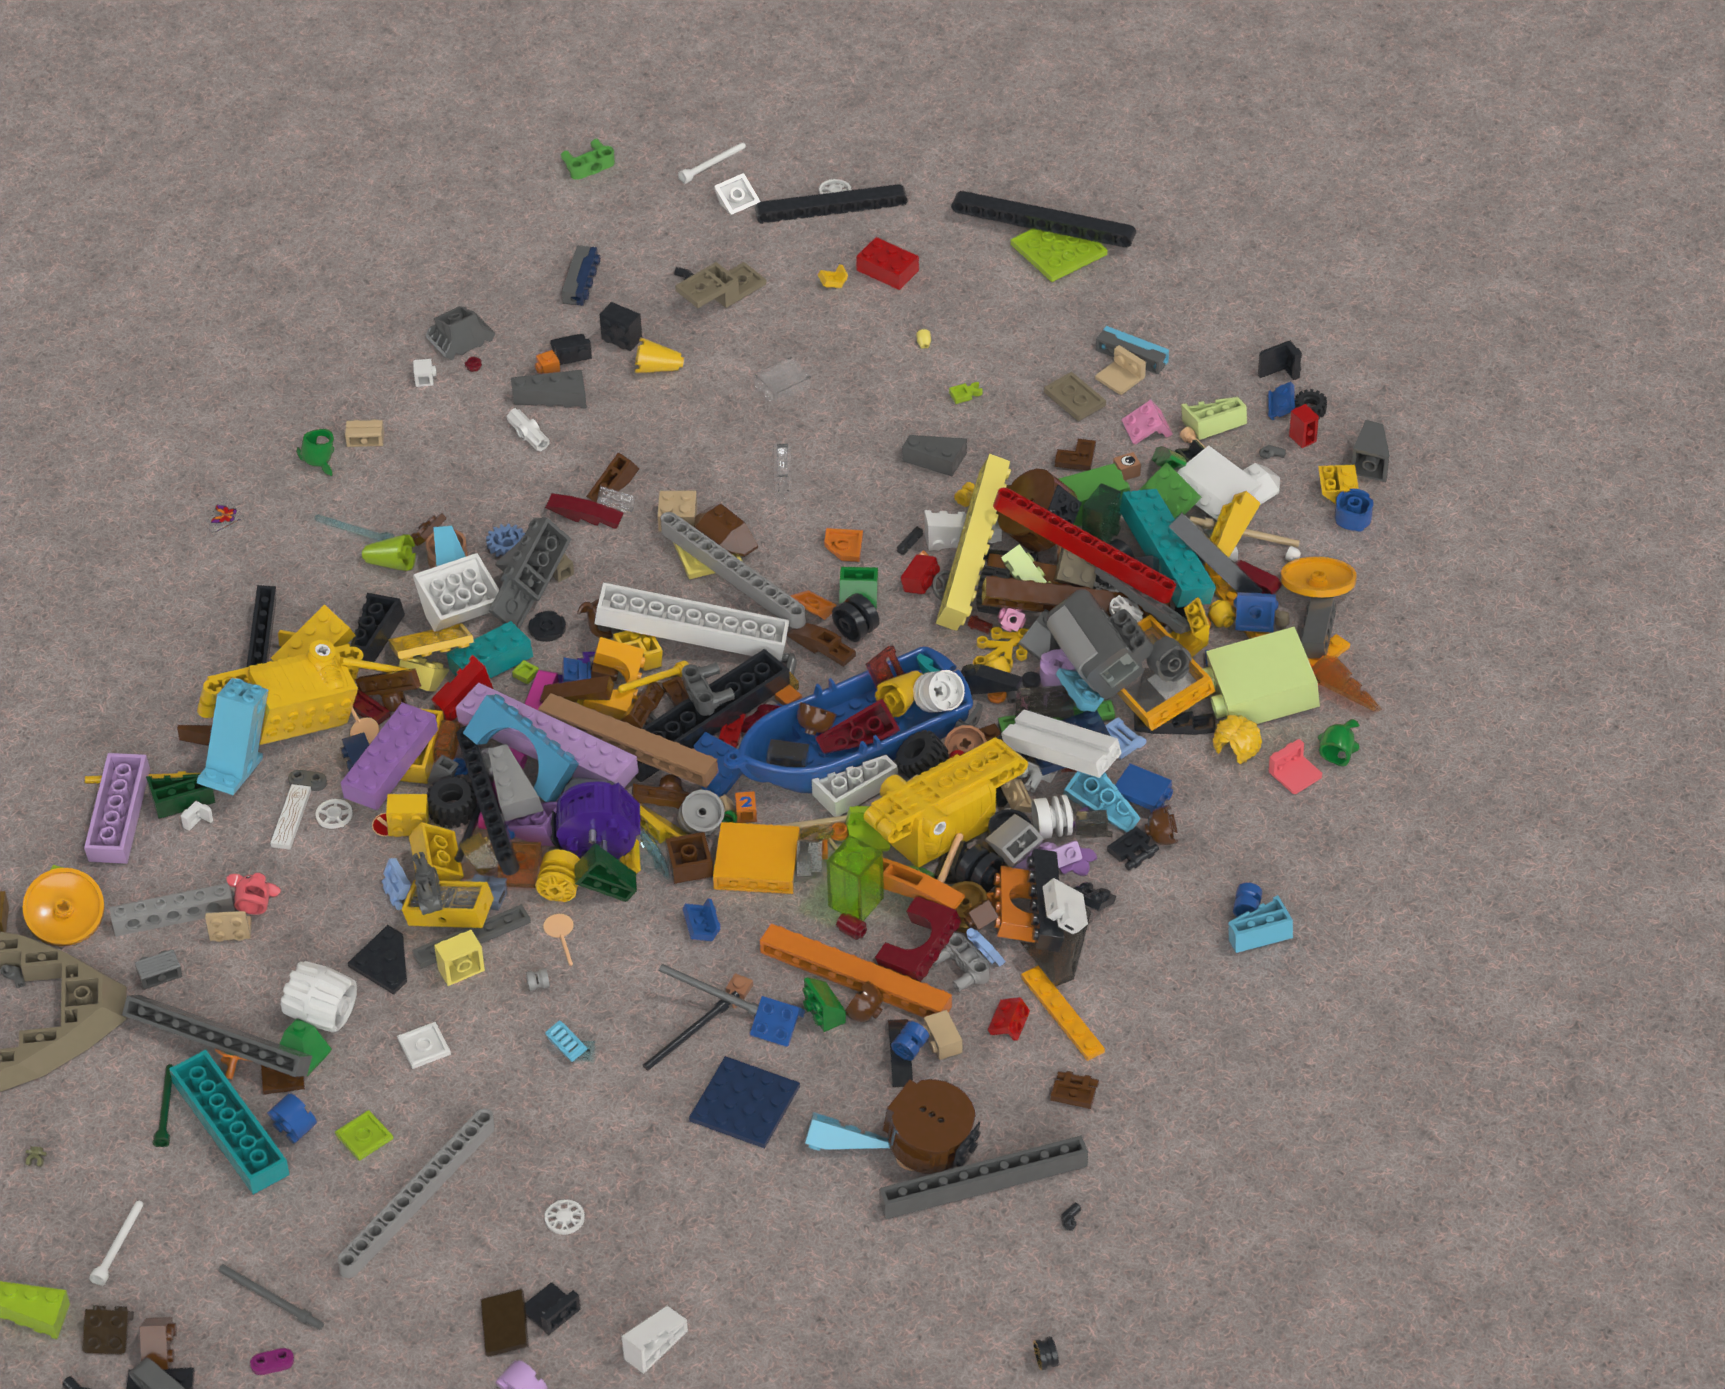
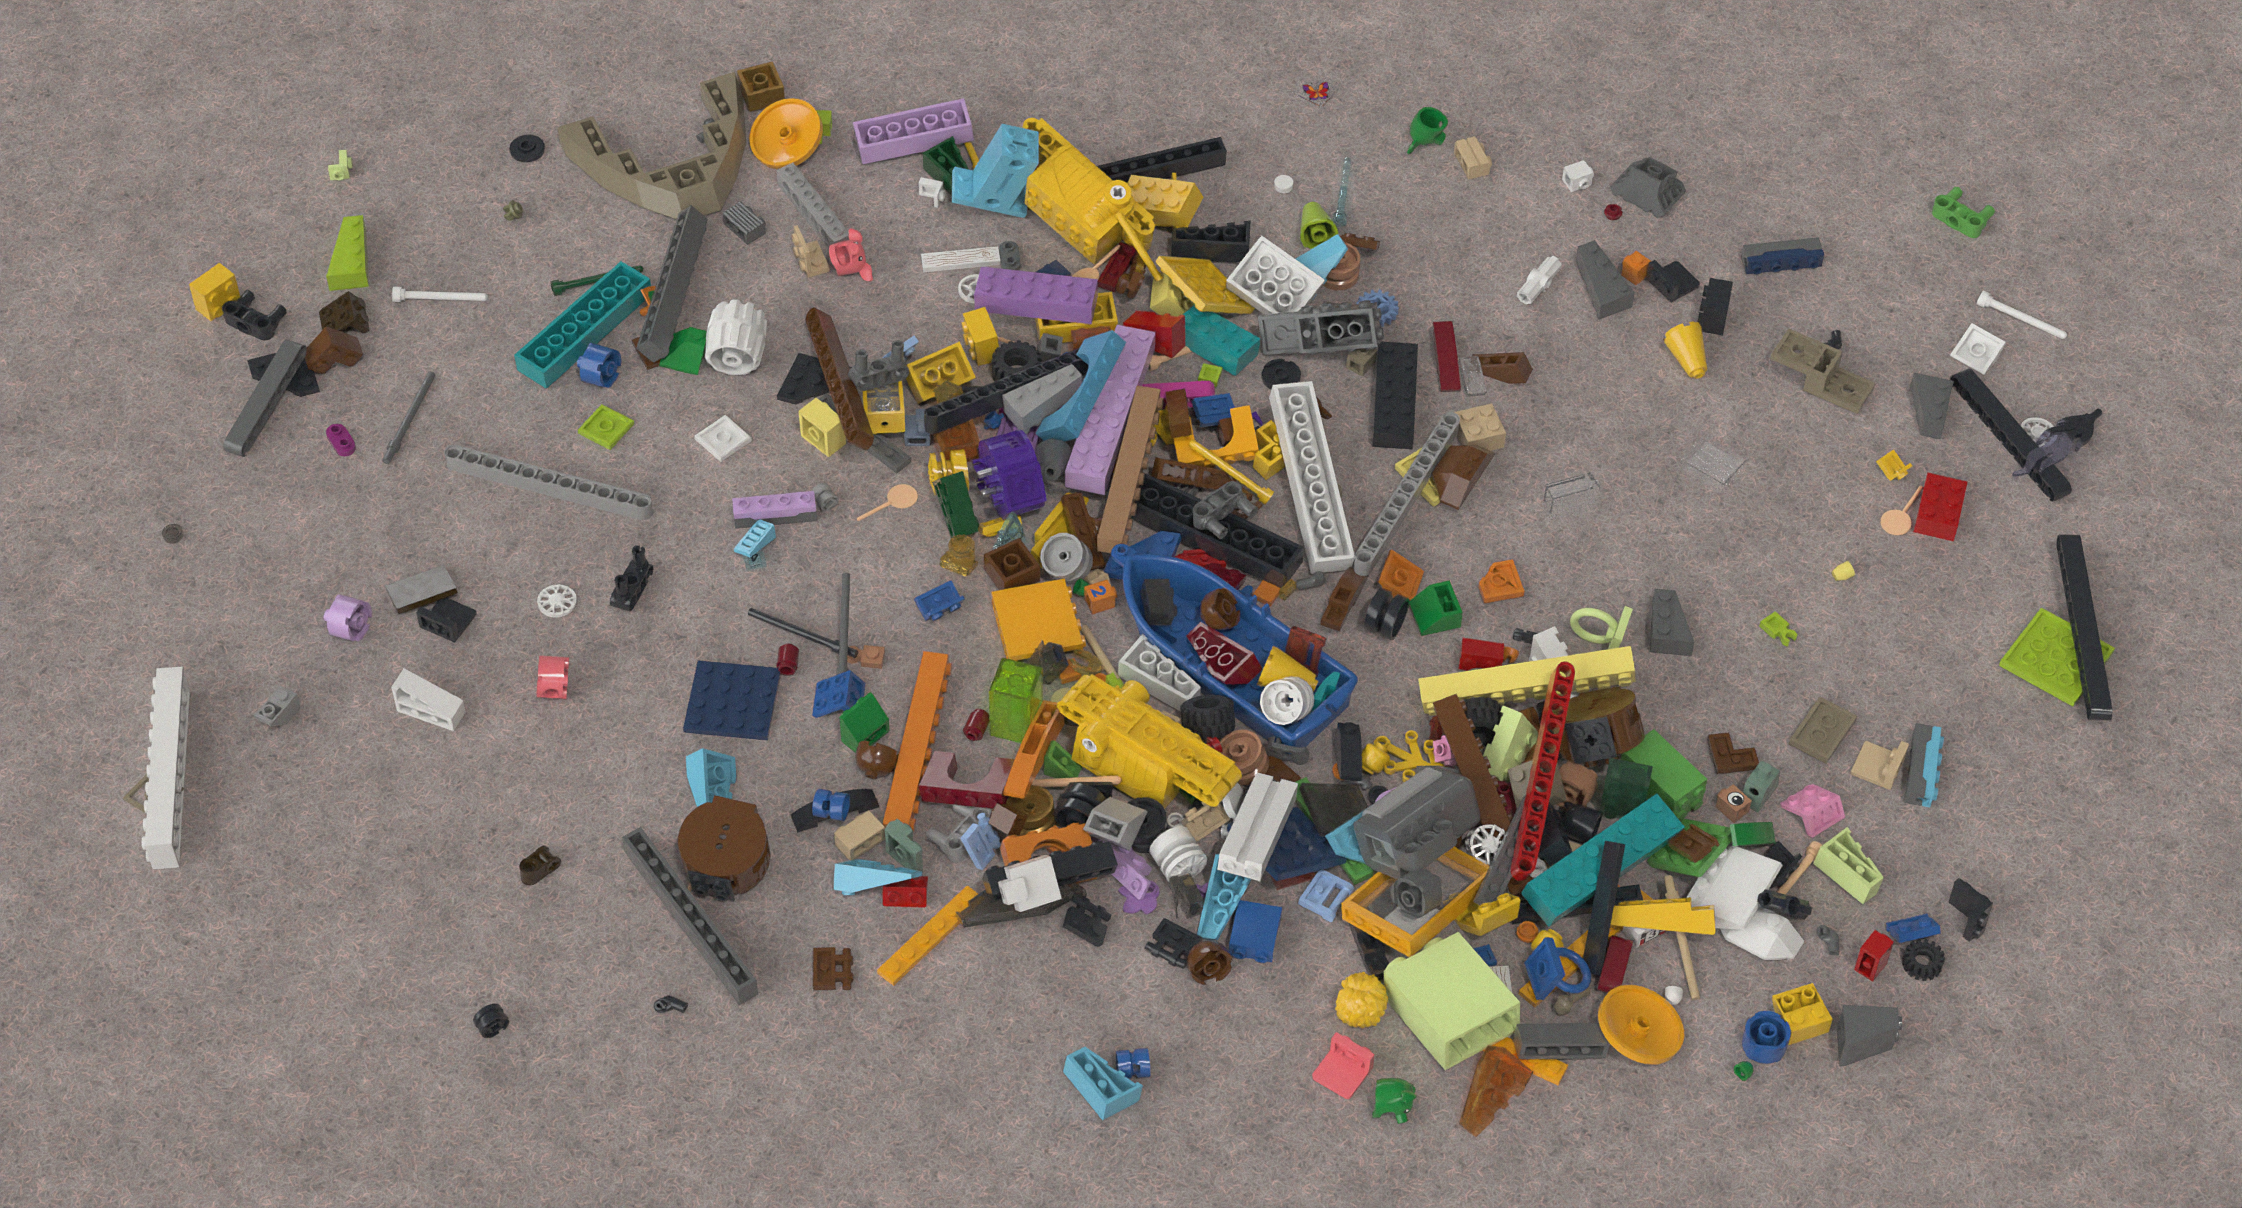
camera: 70 degrees right, 5 degrees up
(322, 567) = (1283, 184): none -> white tile
(404, 929) = (836, 370): none -> reddish brown beam
(537, 1019) = (775, 509): none -> lavender piece
(576, 1148) = (632, 582): none -> black piece
(617, 554) = (1395, 395): none -> black brick
(654, 893) = (960, 555): none -> clear yellow piece
(667, 1229) = (552, 677): none -> coral brick
(718, 1047) = (787, 659): none -> dark red brick
(782, 235) = (1931, 403): none -> dark grey wedge
(855, 172) = (2060, 441): none -> clear purple piece
(880, 1287) = (538, 866): none -> dark brown piece
(884, 295) = (1897, 521): none -> light nougat piece
(936, 483) = (1614, 632): none -> yellowish green tile
(971, 1002) = (901, 845): none -> sand green plate
(993, 1037) = (866, 874): none -> medium azure wedge
(1117, 441) = (1763, 779): none -> sand green torso
(1174, 487) = (1693, 843): none -> reddish brown plate
(1242, 459) = (1784, 904): none -> black piece
(1375, 532) = (1744, 1067): none -> green hinge

